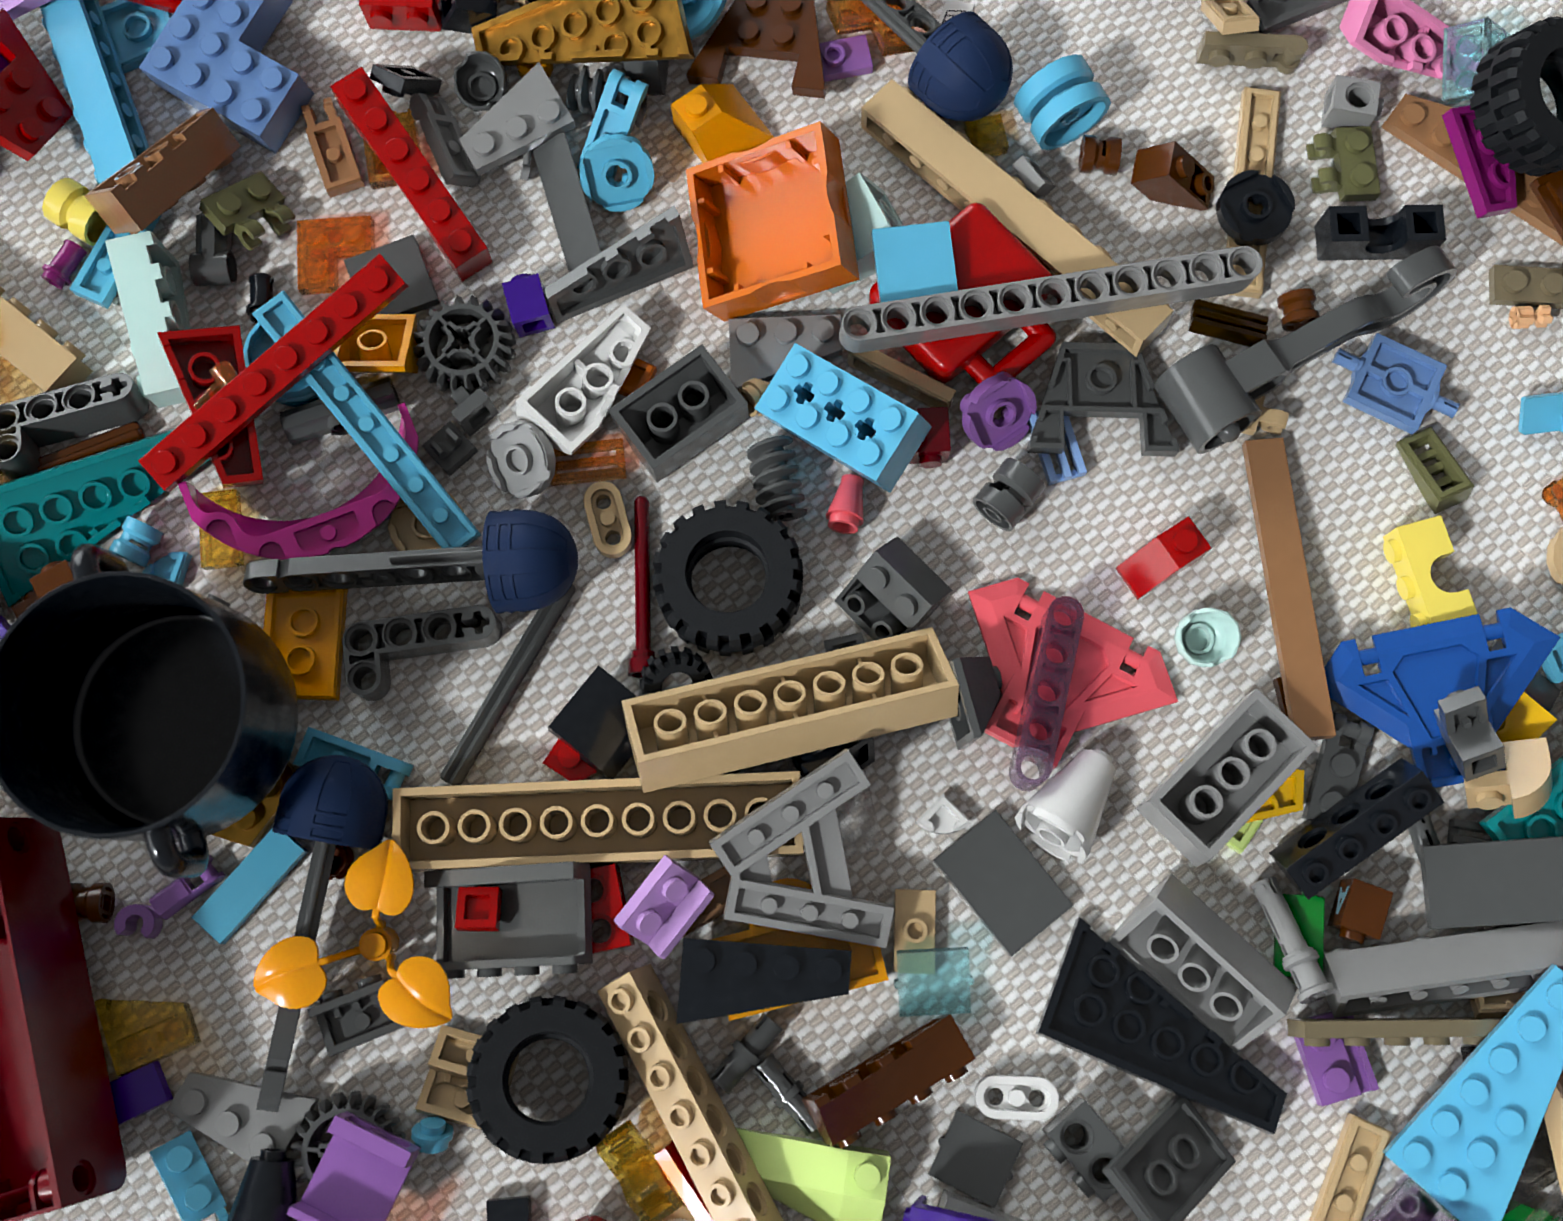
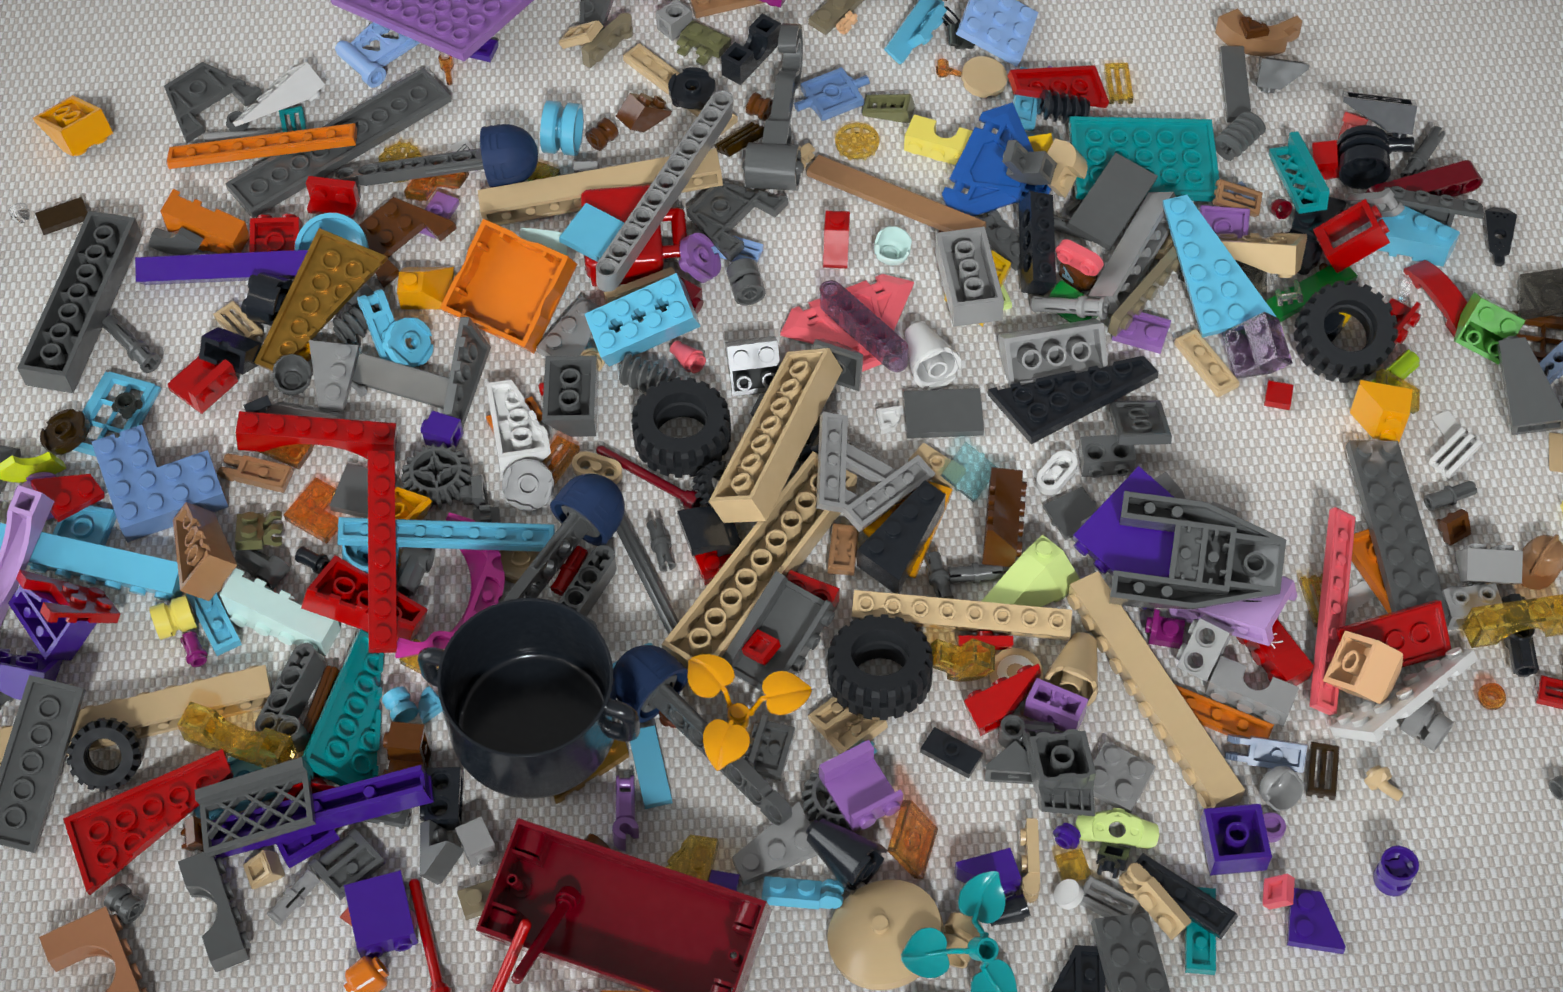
camera: 55 degrees left, 20 degrees down
(223, 374) = (359, 576): clear orange hand -> none
(443, 595) = (569, 570): none -> red axle
(556, 673) = (661, 545): none -> dark grey pin
(664, 906) = (833, 557): lavender bracket -> none
(1346, 469) = (857, 141): none -> clear yellow wheel
(1371, 919) = (1079, 257): none -> coral plate

